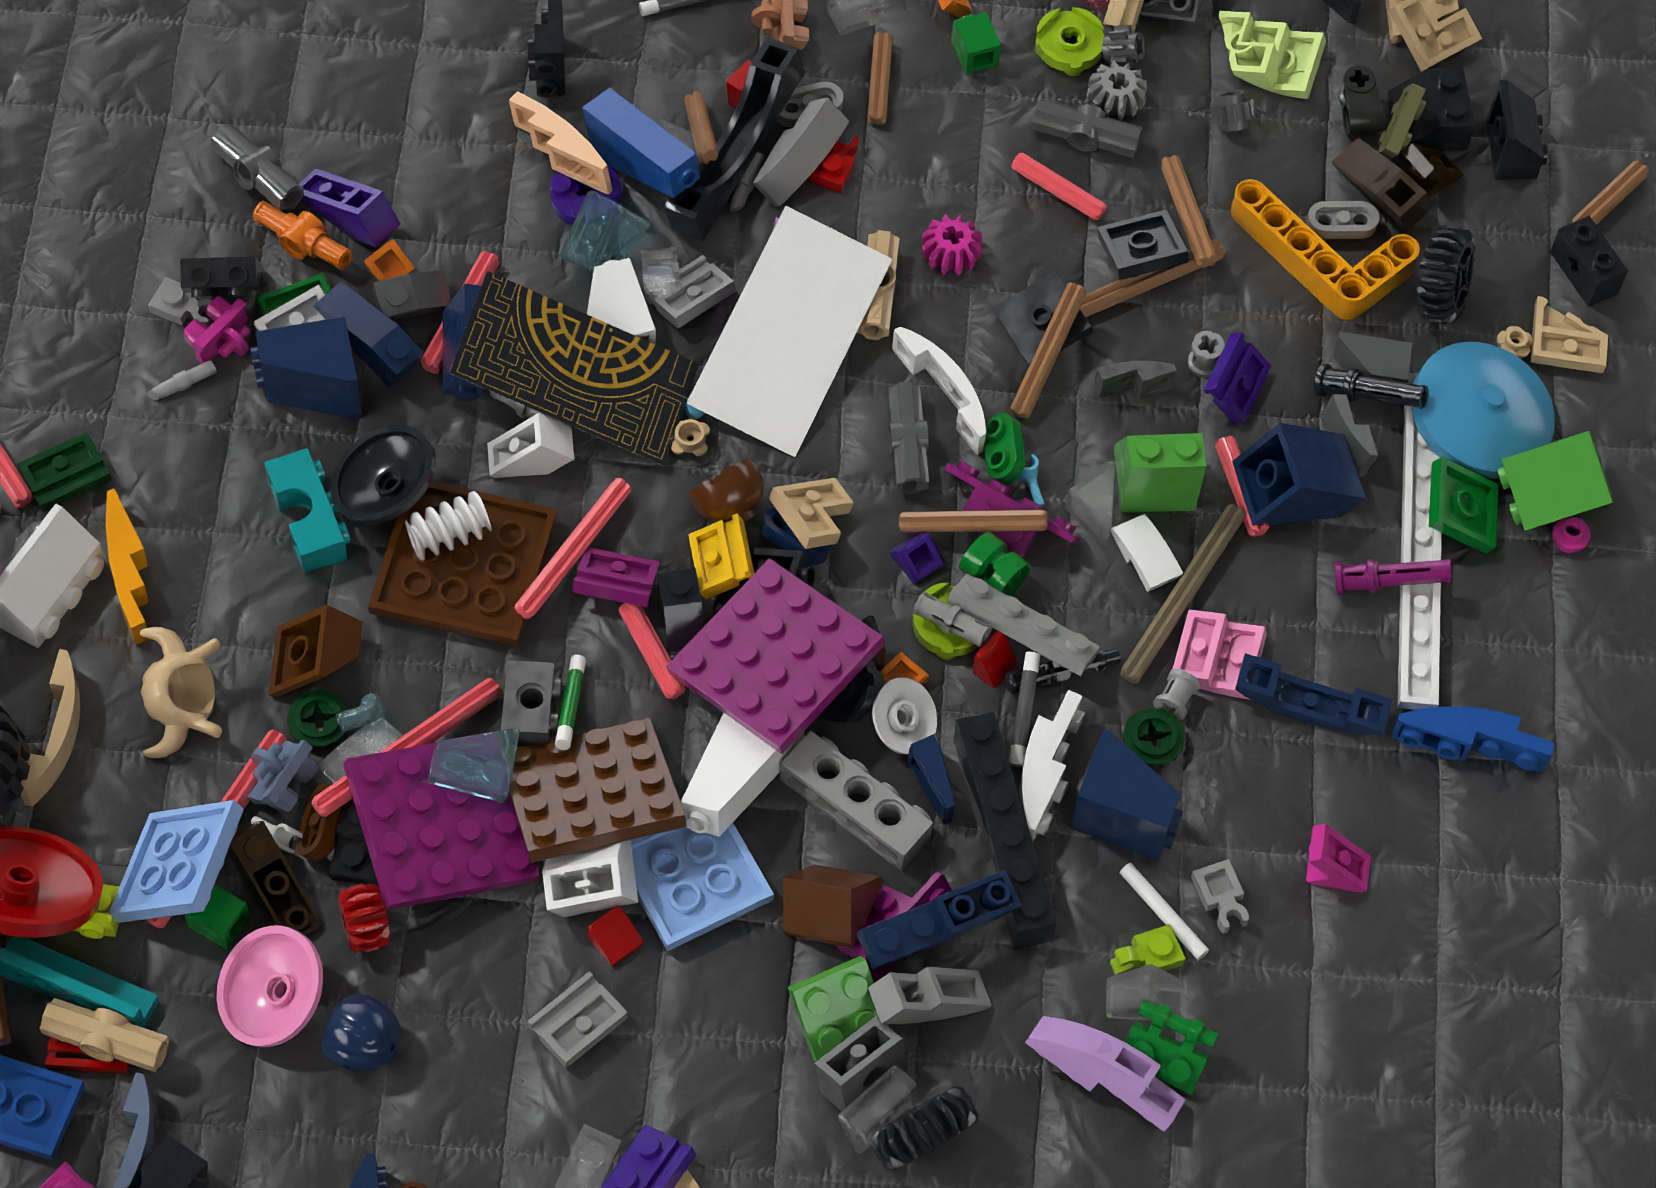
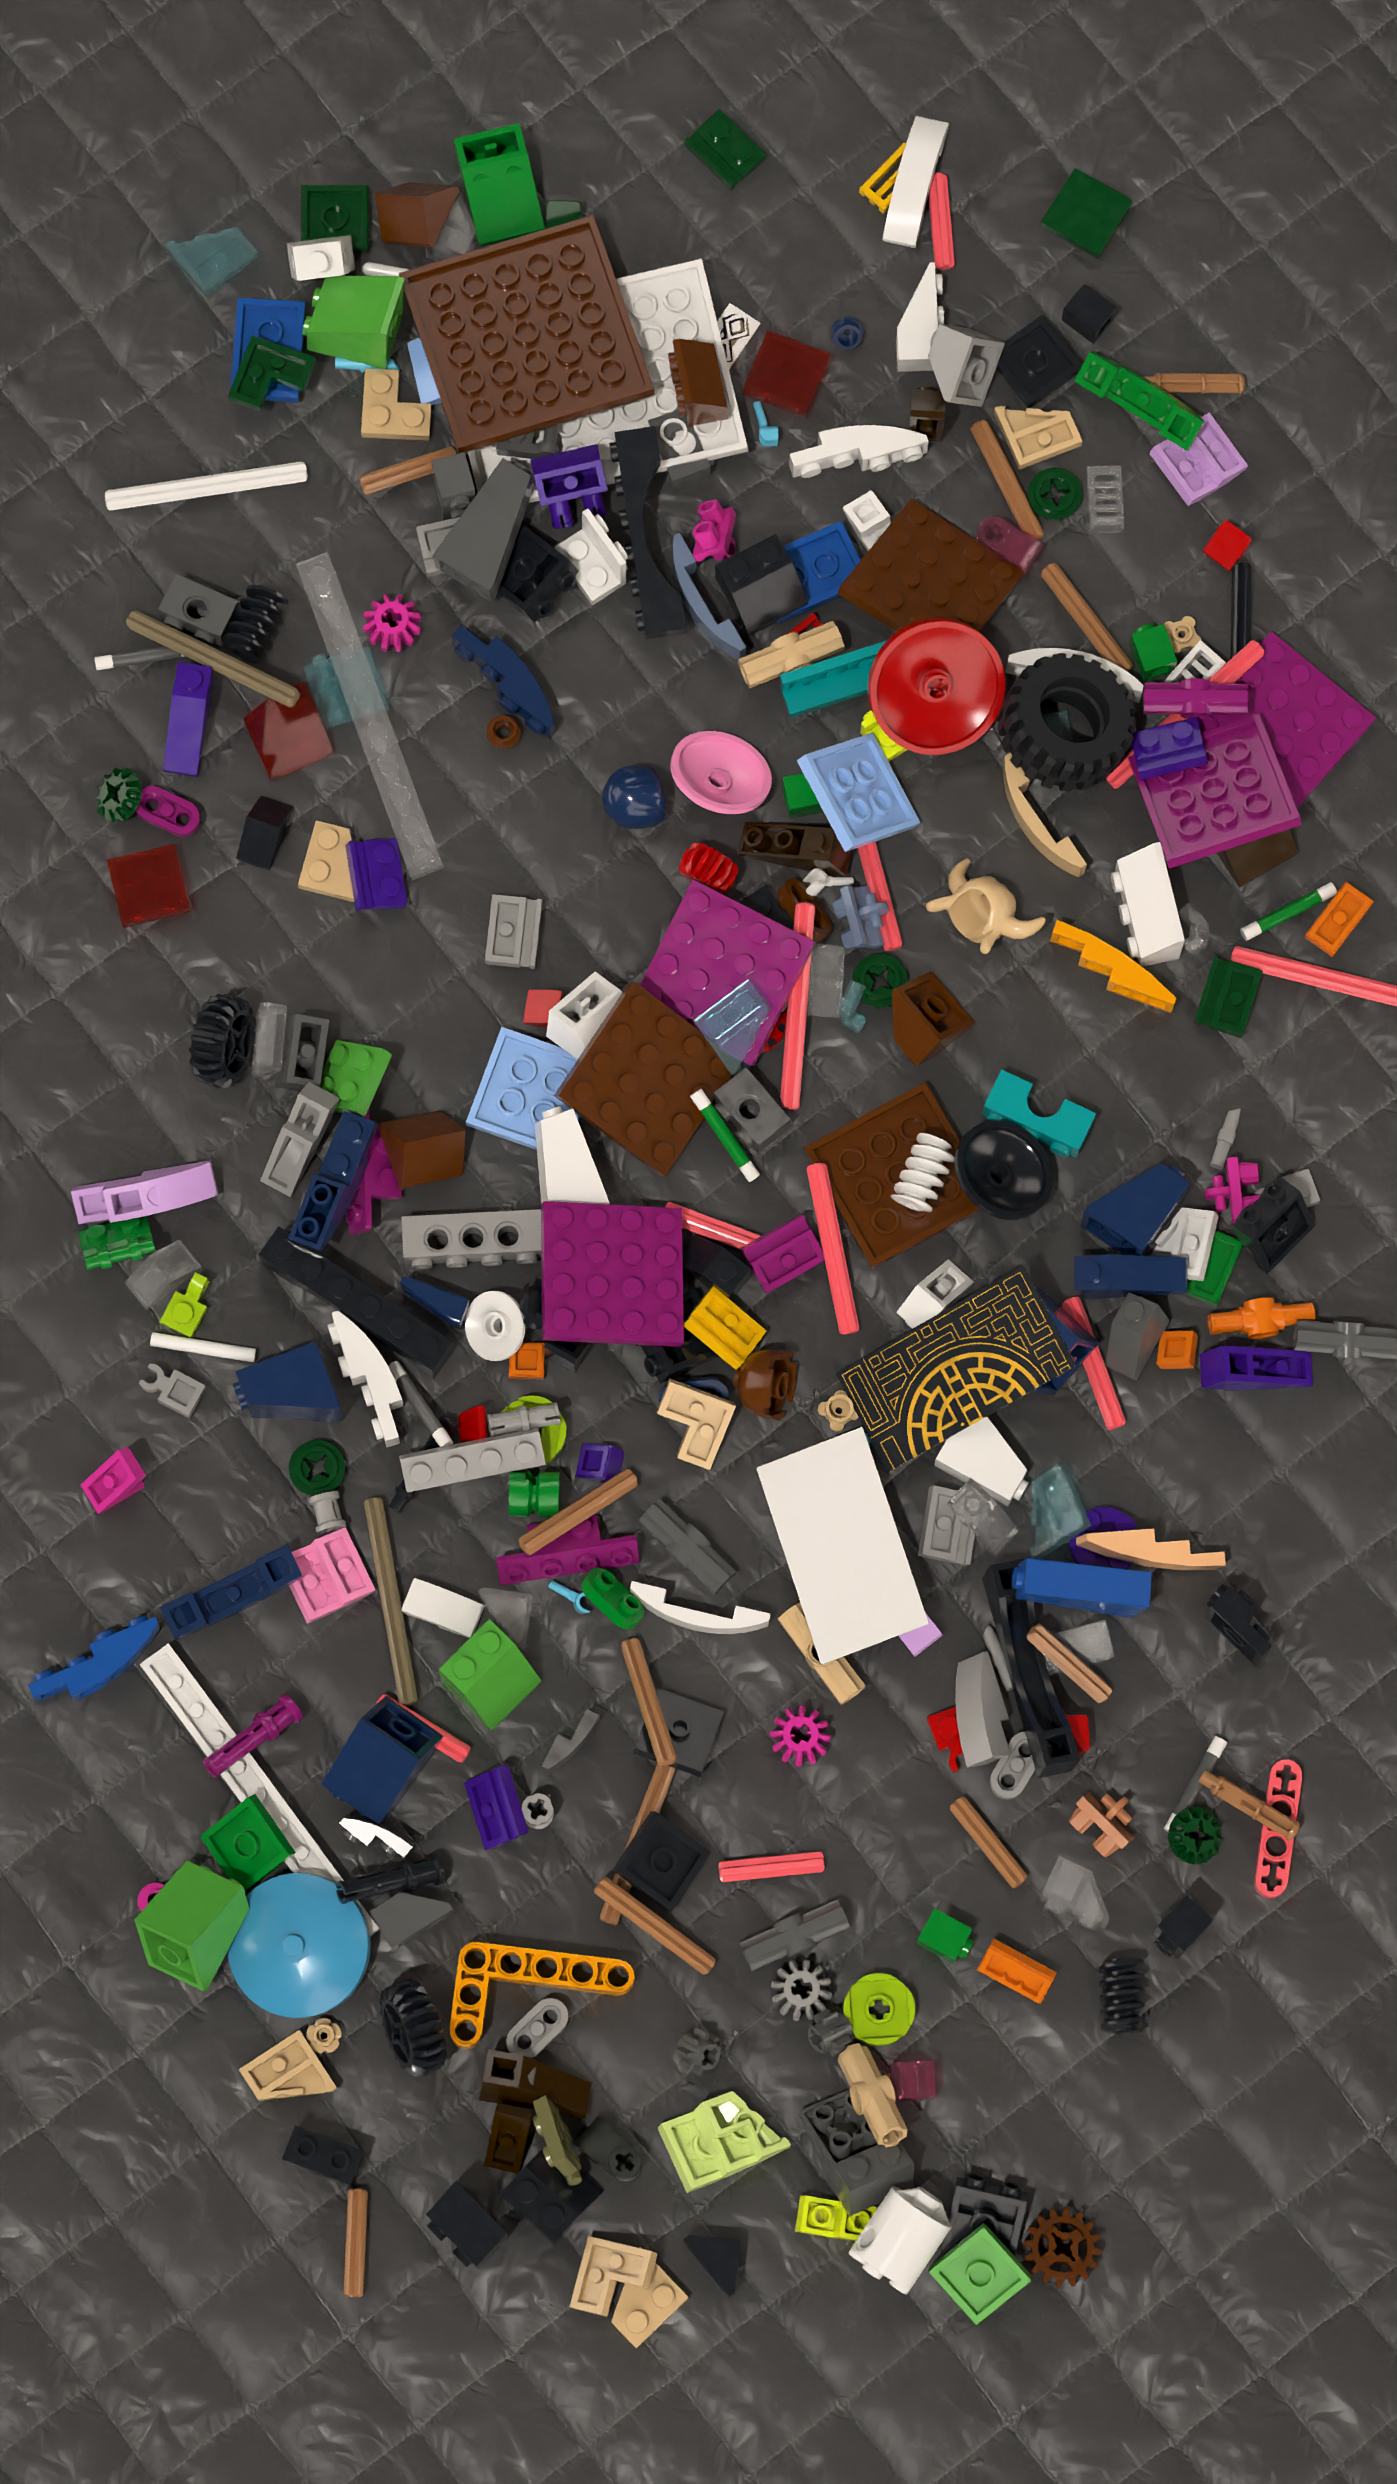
camera: 140 degrees right, 15 degrees up
(63, 1116) = (761, 584): none -> black slope

